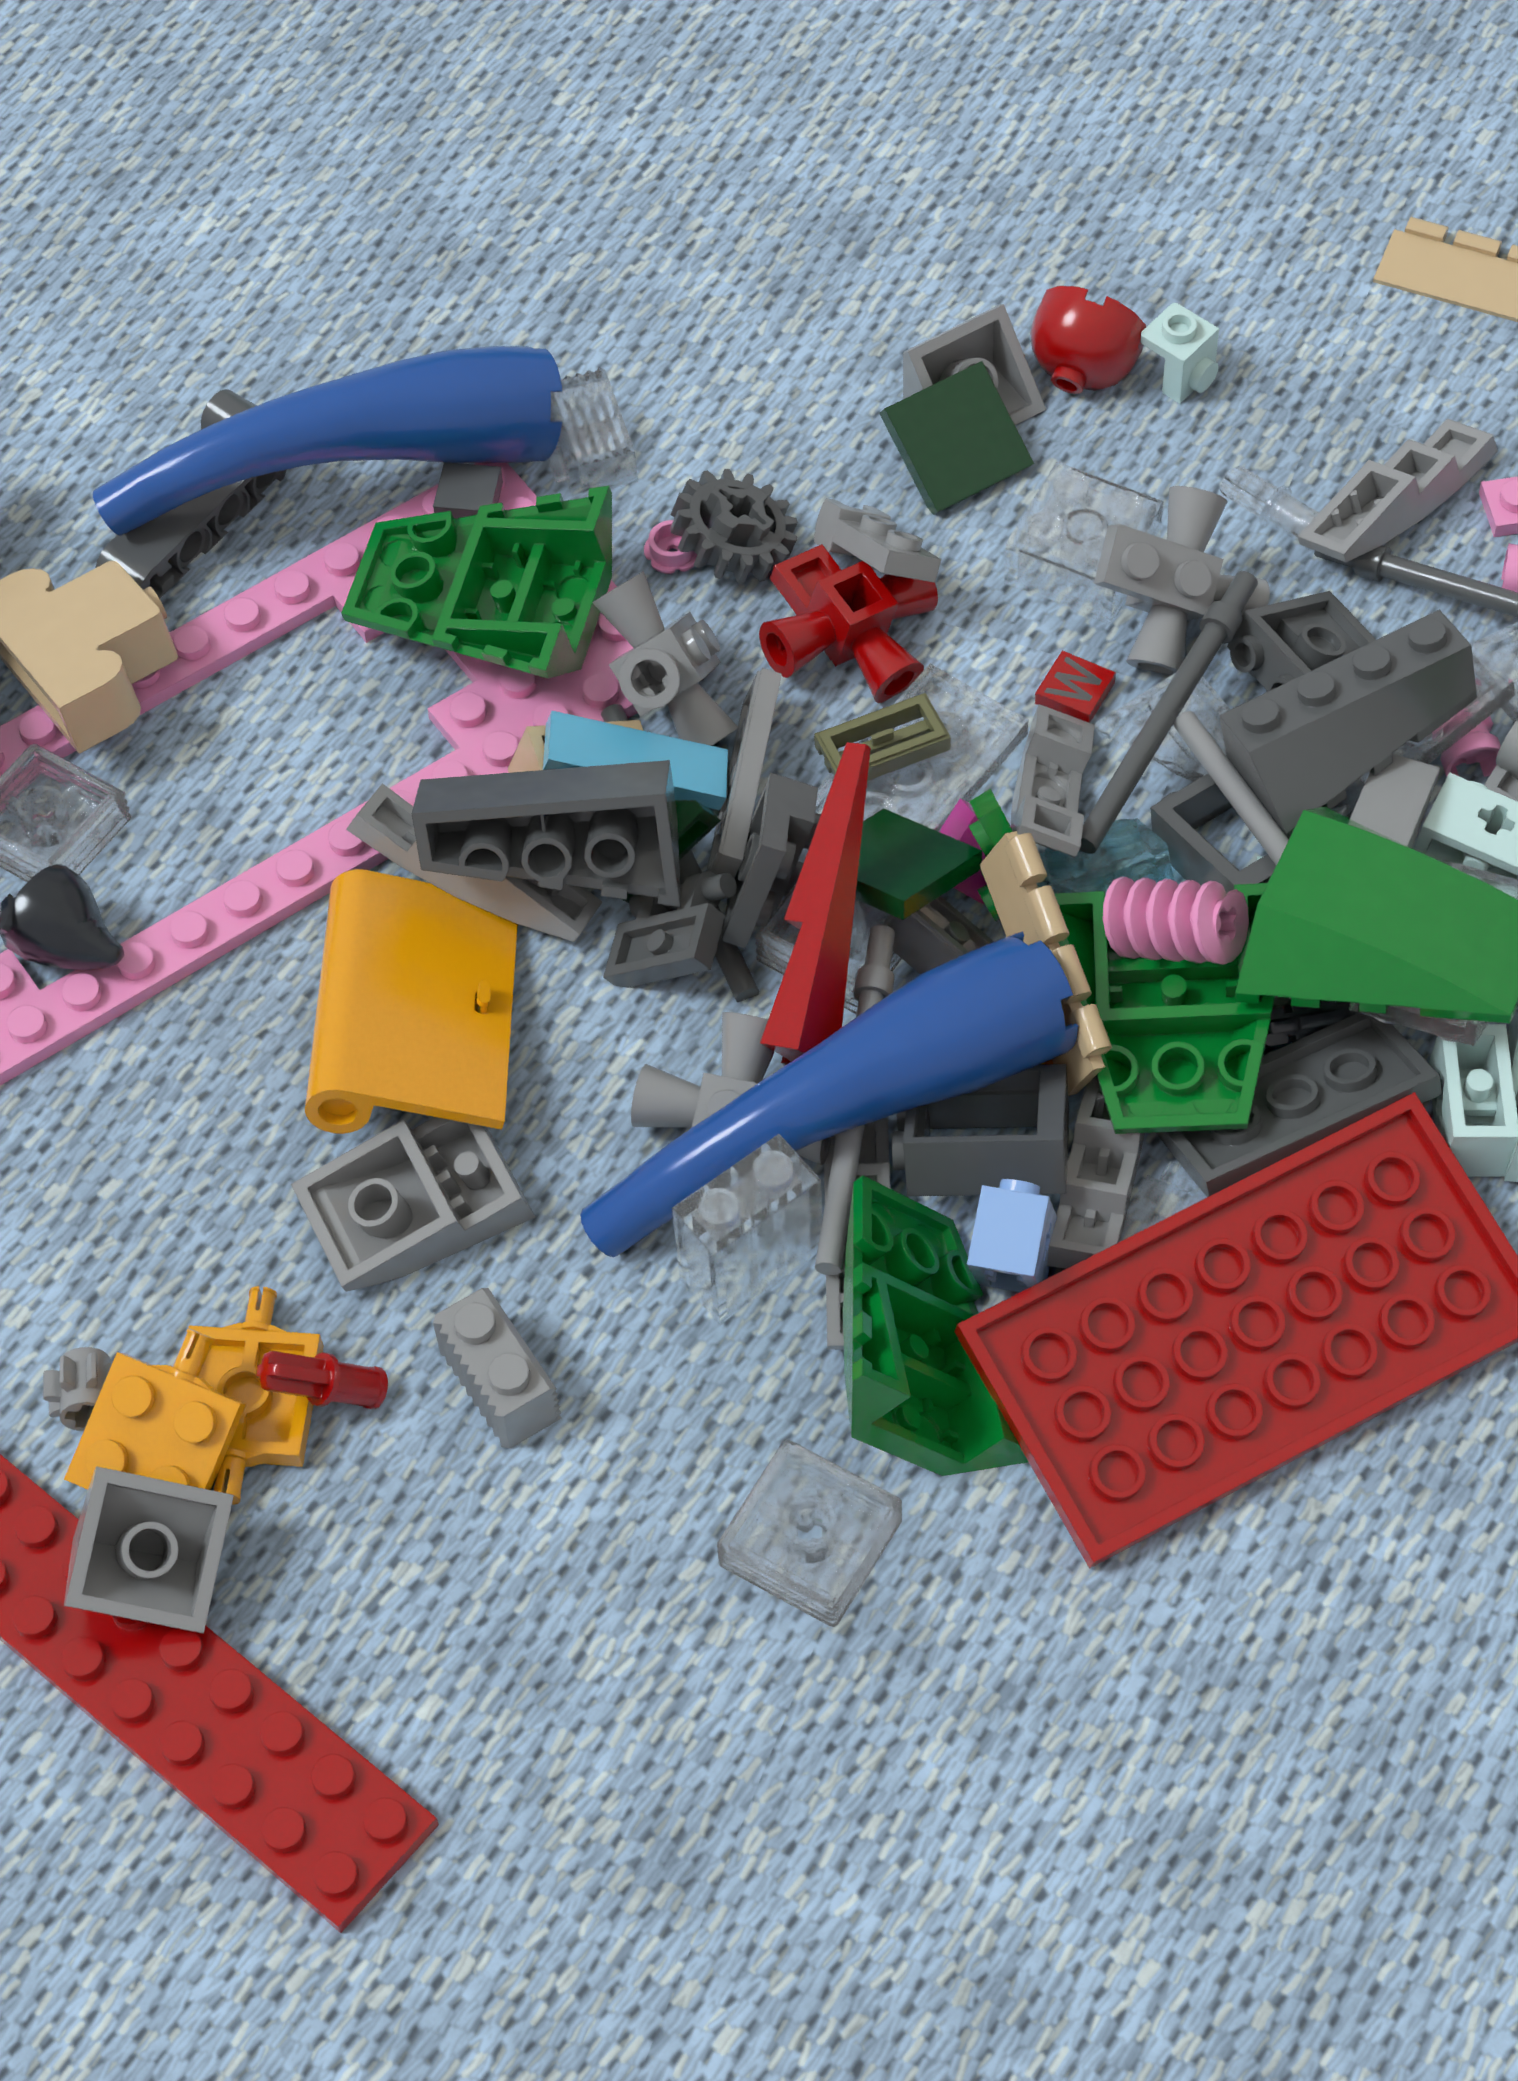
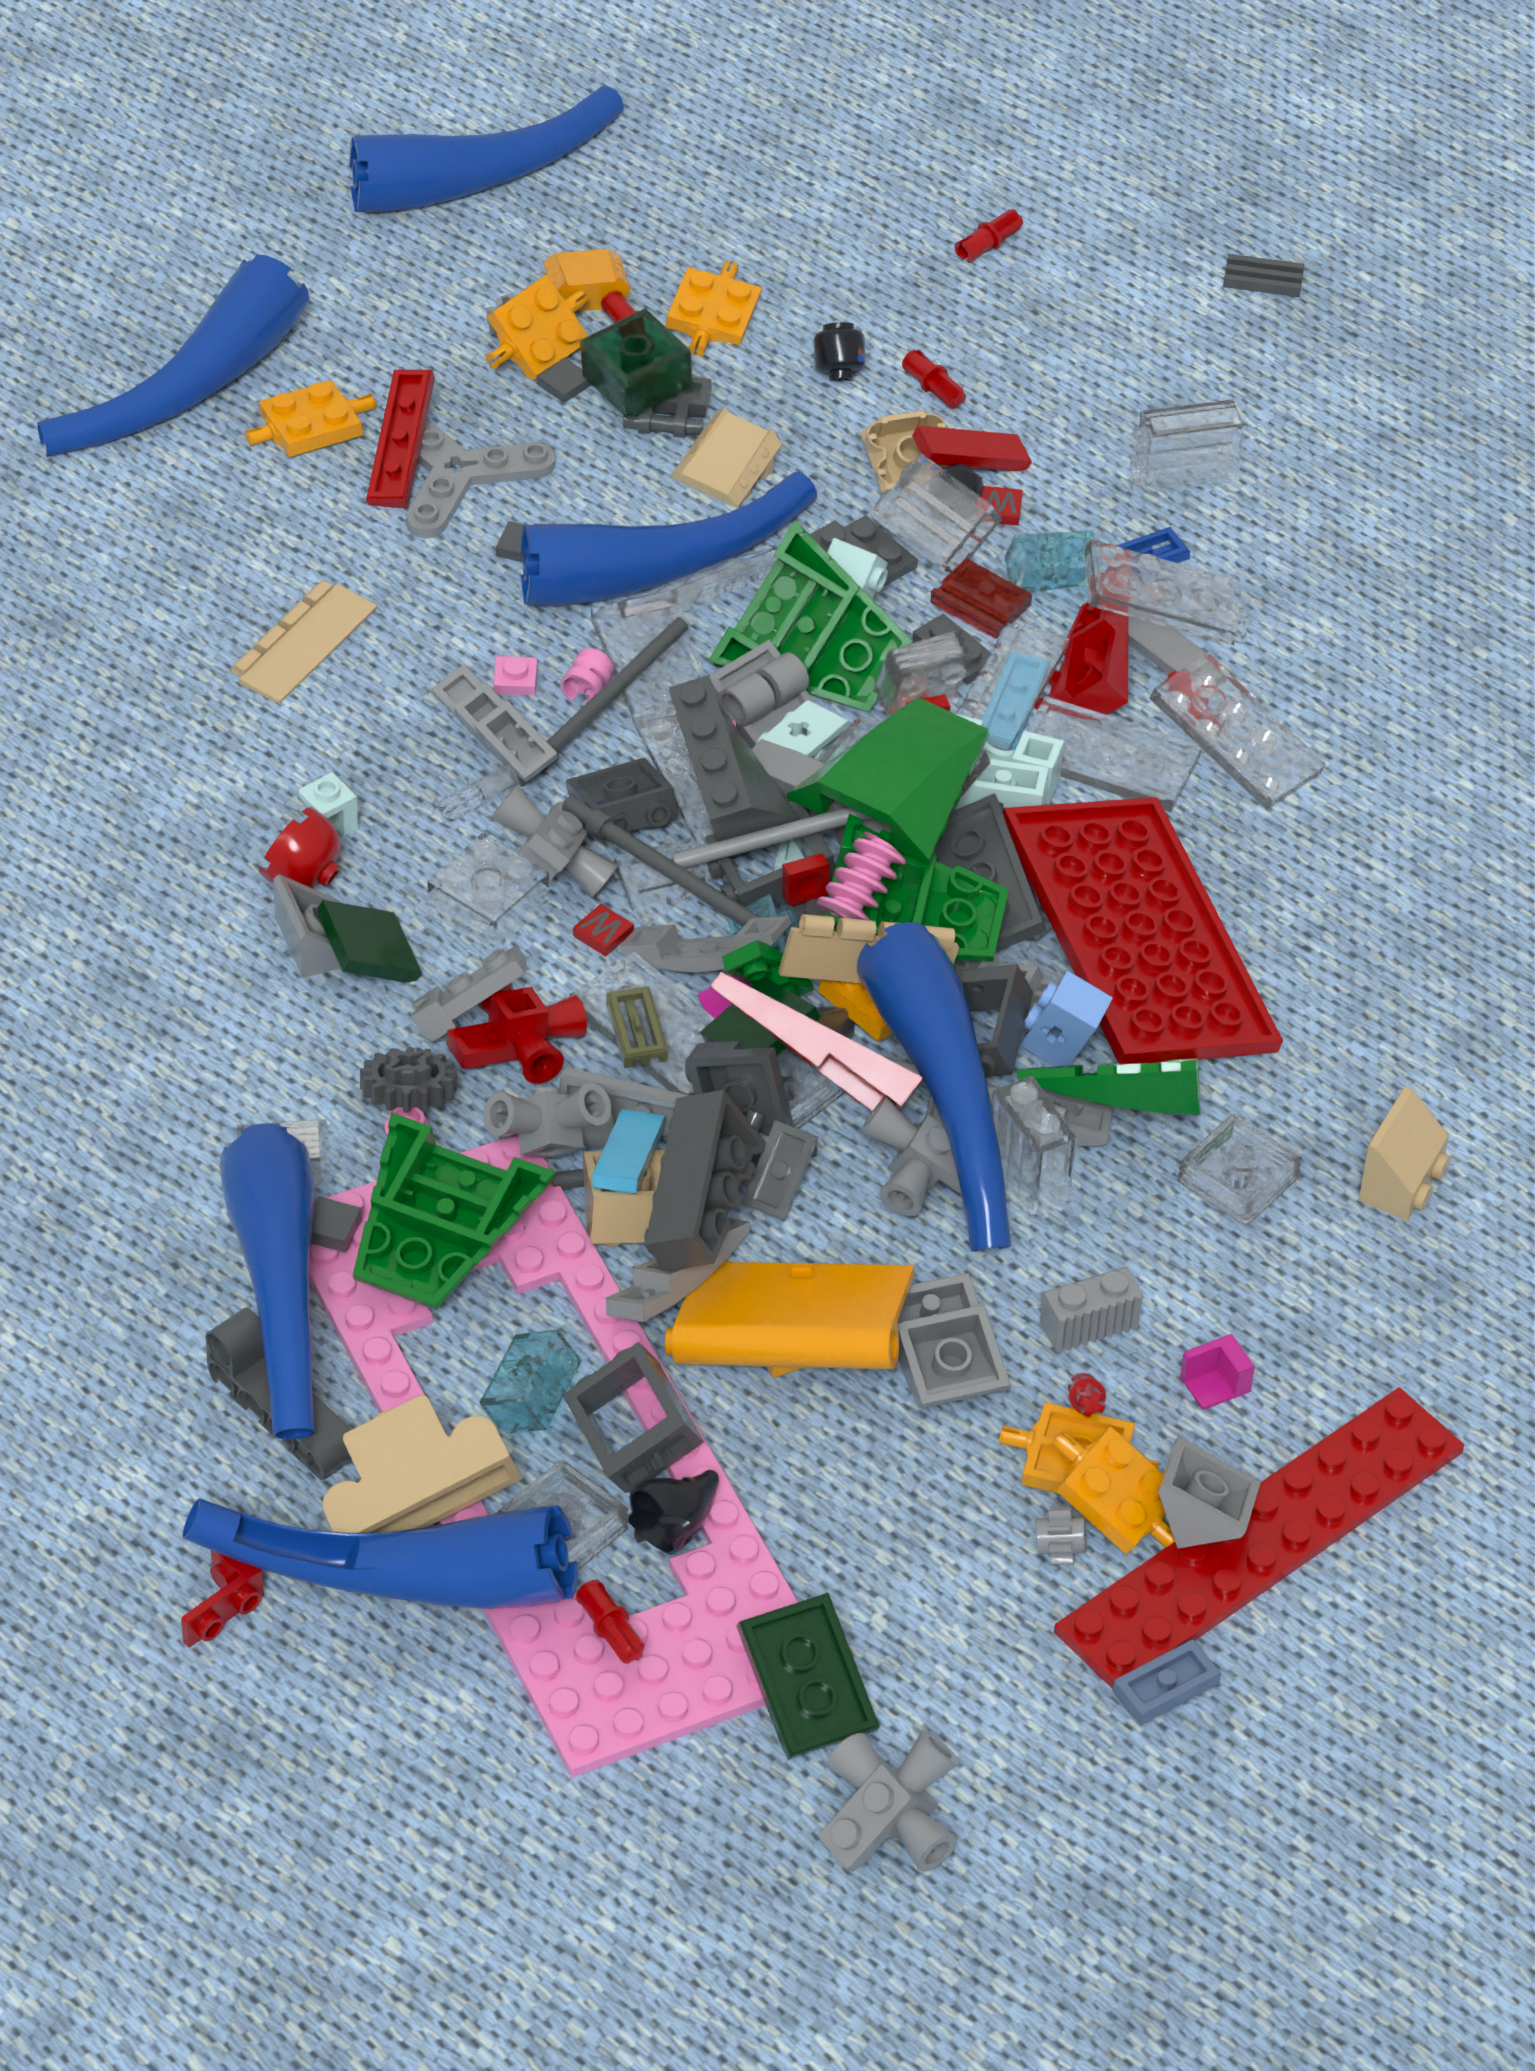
camera: 85 degrees left, 10 degrees down
(204, 855) = (668, 1439): none -> dark grey window
(254, 742) = (530, 1381): none -> clear light blue brick
(419, 1558) = (1217, 1371): none -> dark pink panel
(870, 1761) = (1404, 1158): none -> tan slope
(1197, 862) = (805, 879): none -> red tile

